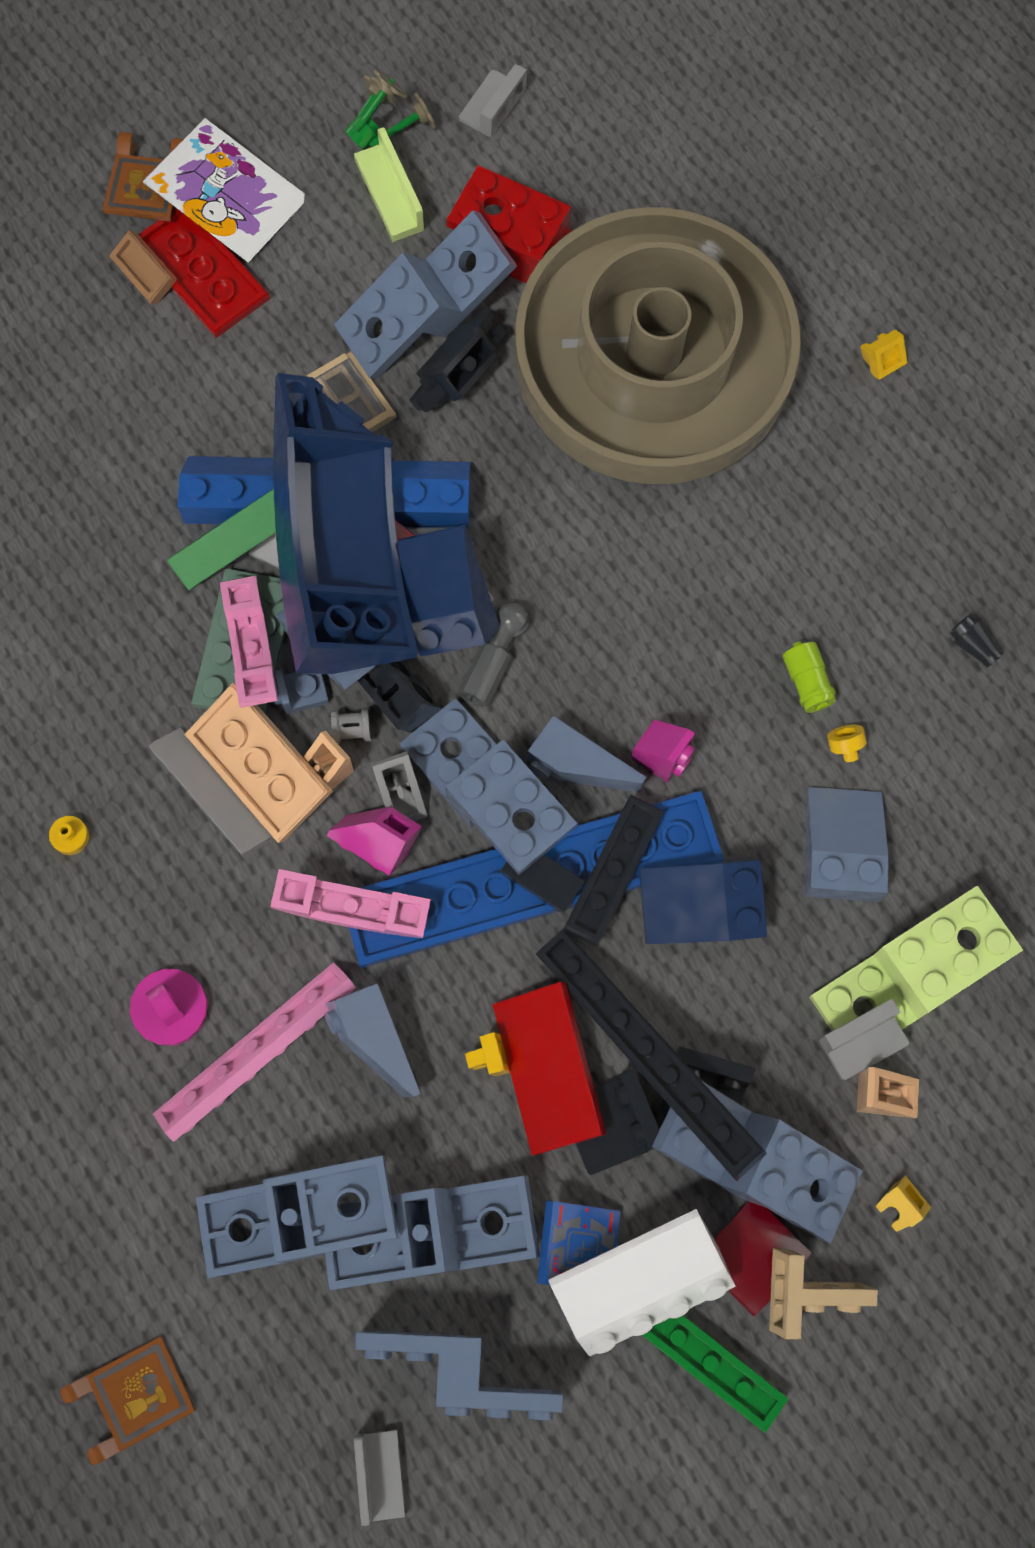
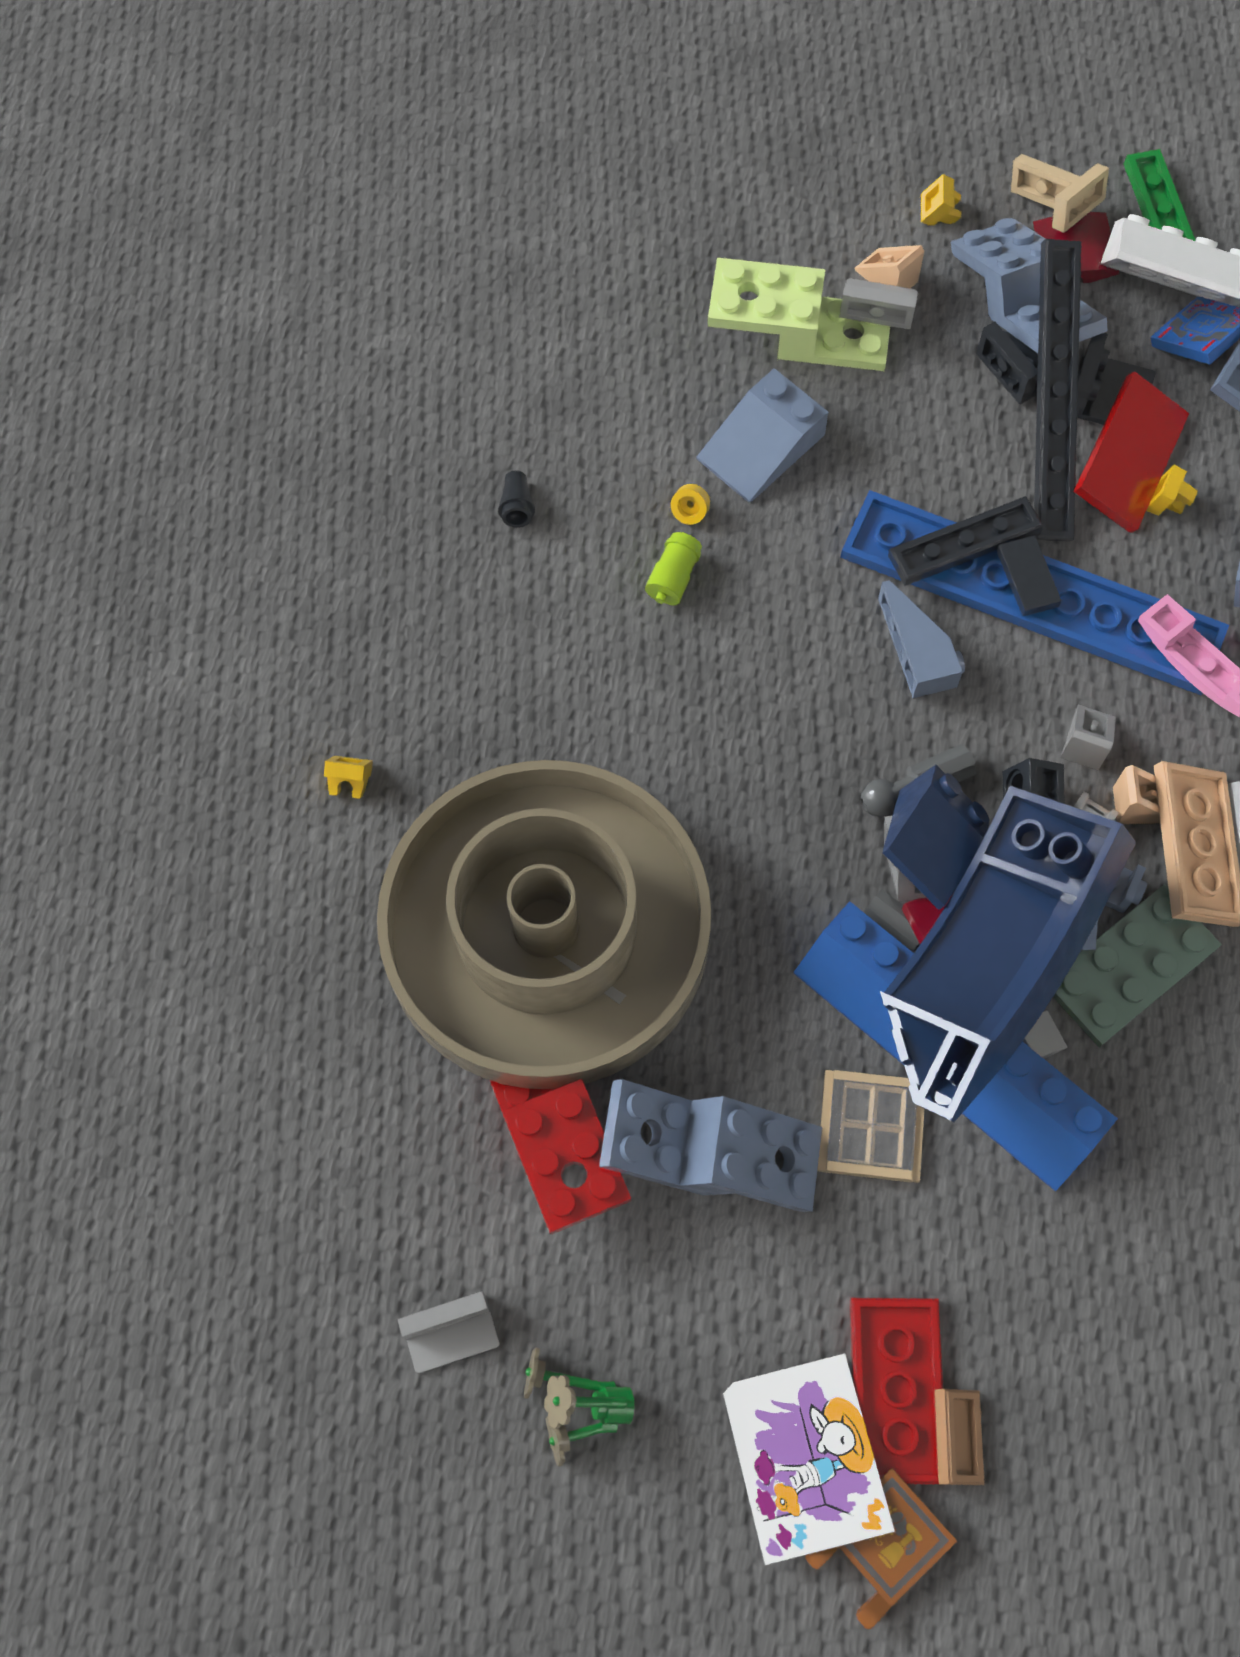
camera: 135 degrees left, 5 degrees down
(225, 541) = (1090, 1055): green tile -> none
(249, 642) = (1141, 934): bright pink slope -> none
(377, 836) = (1141, 708): dark pink slope -> none
(390, 188) = (638, 1317): yellowish green panel -> none
(458, 362) = (731, 1062): black hinge -> none
(488, 786) = (1016, 670): sand blue bracket -> none
(664, 749) = (847, 592): dark pink slope -> none
(703, 901) = (912, 468): dark blue slope -> none

